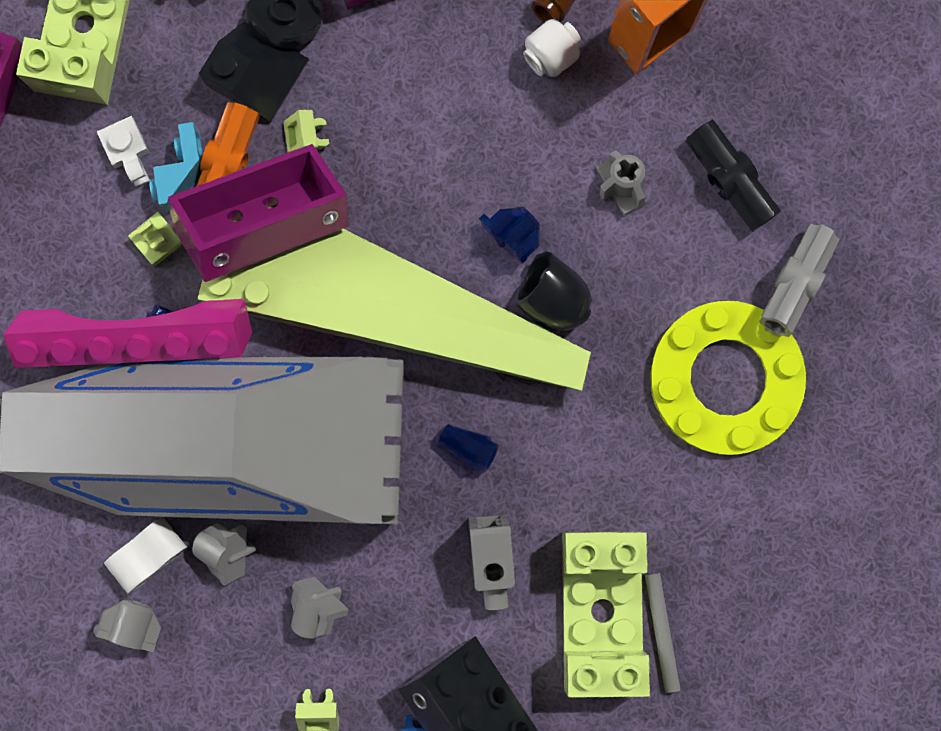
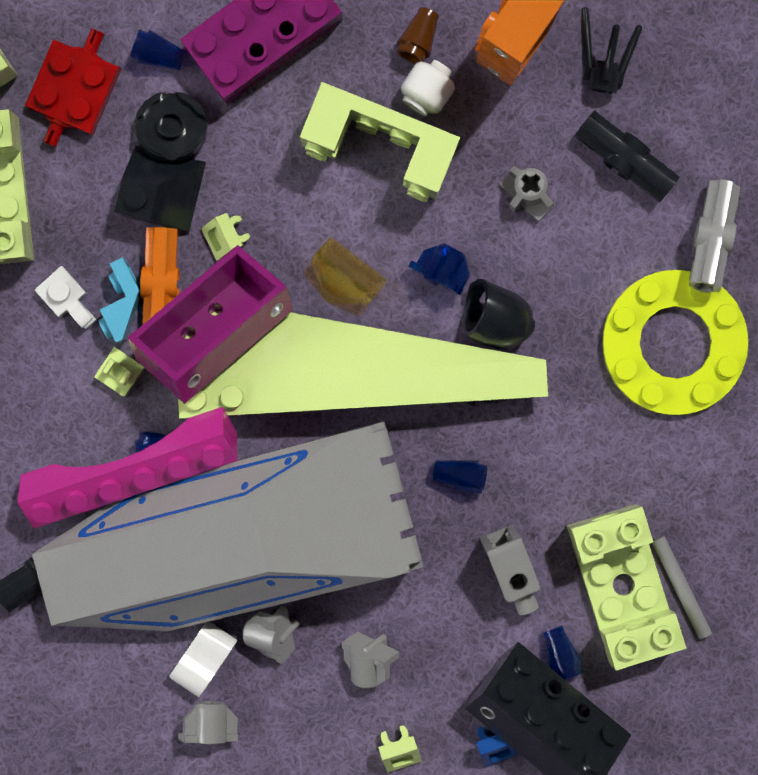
camera: 20 degrees left, 5 degrees up
(411, 210) = (345, 276): none -> clear yellow slope
(453, 40) = (332, 116): none -> yellowish green plate
(517, 664) = (562, 654): none -> clear blue cone
(733, 90) = (604, 75): none -> black plant

